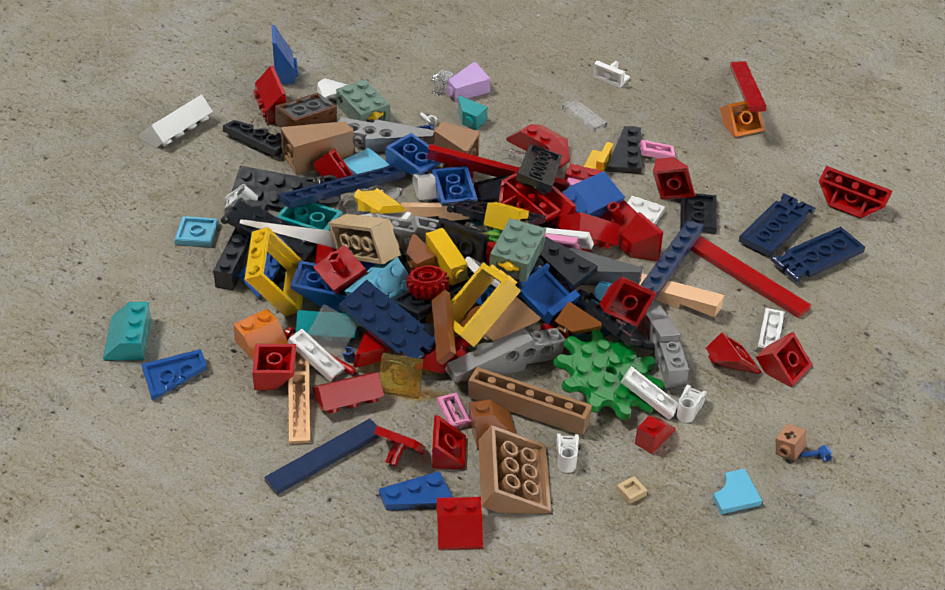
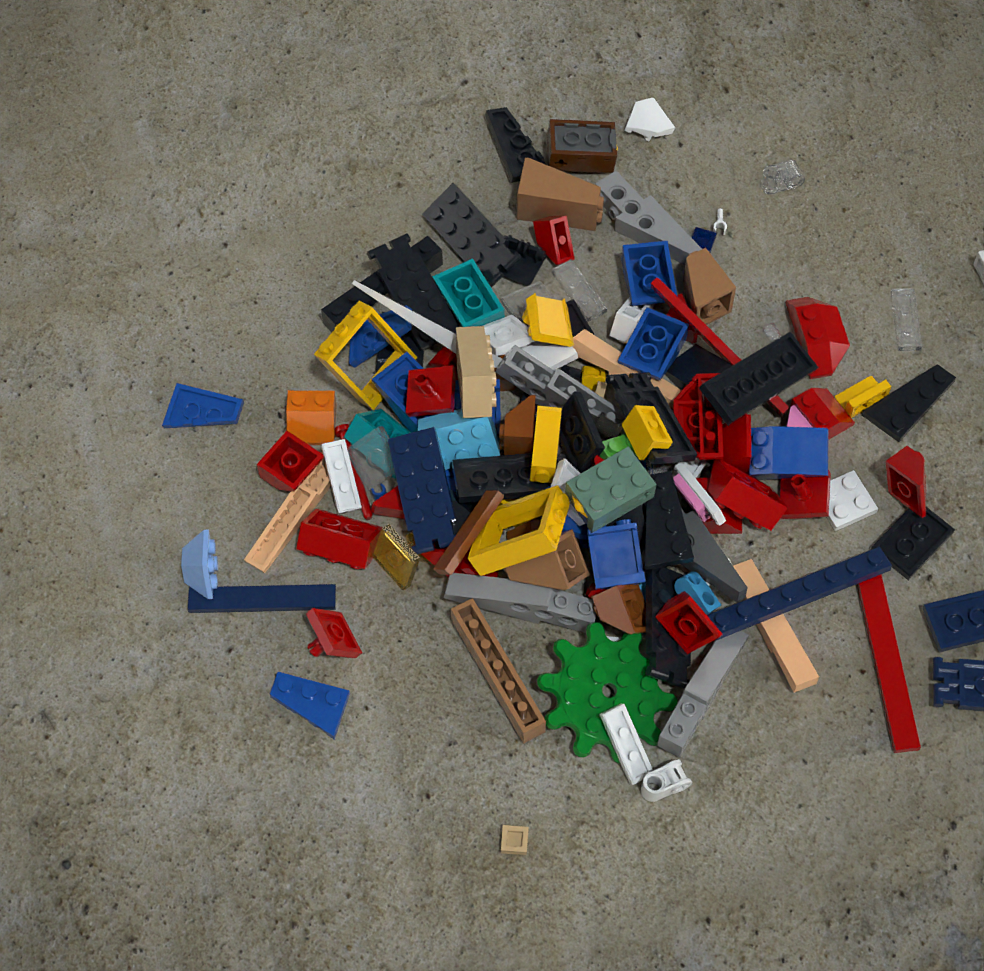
camera: 40 degrees right, 20 degrees up
(128, 332) = (198, 335): teal slope -> none
(177, 122) = (445, 77): white slope -> none
(196, 231) = (357, 238): medium azure tile -> none
(241, 192) = (421, 226): white piece -> none
(265, 452) = (200, 564): none -> light blue slope
(269, 93) = (568, 93): red slope -> none
(284, 62) = (618, 47): blue slope -> none
(341, 186) = (534, 273): dark blue plate -> none
(362, 102) = (660, 162): sand green piece -> none
(365, 161) = (598, 249): medium azure tile -> none
(427, 282) = (501, 464): red gear -> none
(447, 446) = (379, 666): red slope -> none
(457, 423) = (418, 647): bright pink tile -> none
(459, 523) = (315, 763): red slope -> none
(468, 83) = (806, 195): lavender slope -> none
(471, 113) = (772, 243): teal slope -> none
(488, 413) = (443, 671): dark orange slope -> none
(513, 473) = (415, 743): medium nougat slope -> none
(567, 452) = (491, 749): white piece -> none
(641, 239) = (798, 540): red slope -> none
(653, 433) = (596, 790): red slope -> none
(656, 149) = (942, 426): bright pink tile -> none
(731, 354) = (765, 755): red slope -> none
(737, 493) = (616, 919): medium azure tile -> none
(770, 328) = (843, 750): white tile -> none
(785, 360) = (817, 799): red slope -> none
(788, 446) = (731, 899): nougat brick -> none
(823, 451) = (751, 936): blue hand -> none

